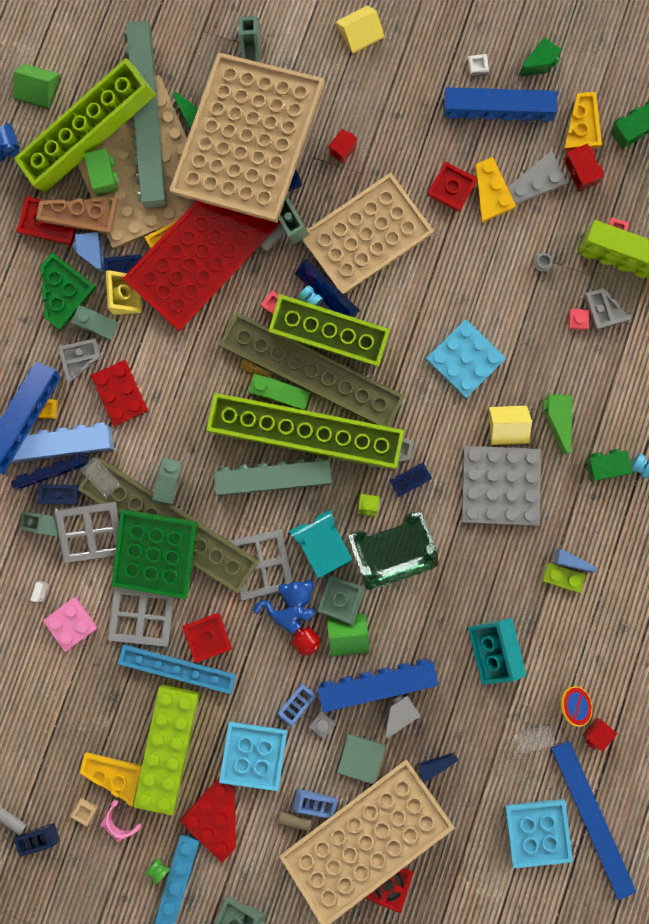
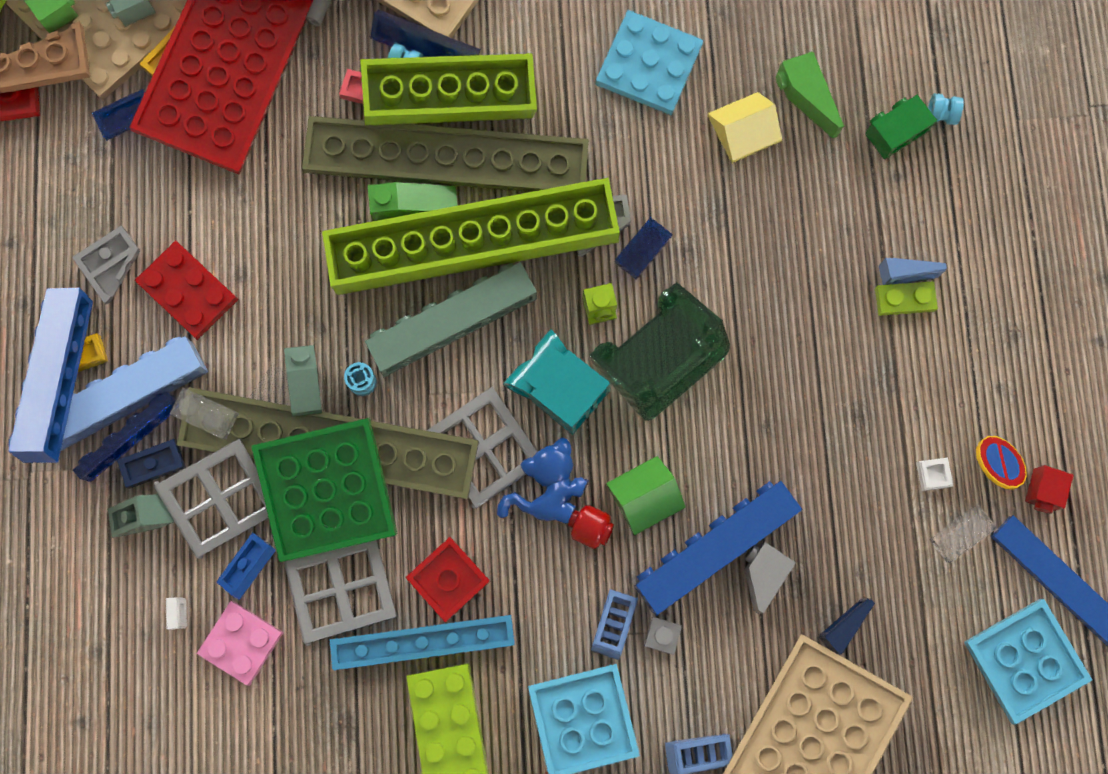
camera: 30 degrees left, 5 degrees down
(62, 290) = (50, 180): green plate -> none
(90, 249) = (68, 110): medium blue slope -> none
(90, 580) = (246, 566): none -> blue plate
(94, 323) = (112, 206): sand green slope -> none
(120, 295) = (137, 155): light yellow slope -> none
(205, 495) = (365, 382): none -> medium azure wheel
(254, 368) = (359, 182): clear yellow hinge -> none
(341, 599) = (616, 448): sand green tile -> none
(361, 758) = (737, 661): sand green tile -> none
(497, 651) = (861, 432): teal slope -> none
(501, 485) = (769, 210): light grey plate -> none
(532, 695) = (934, 474): none -> white tile

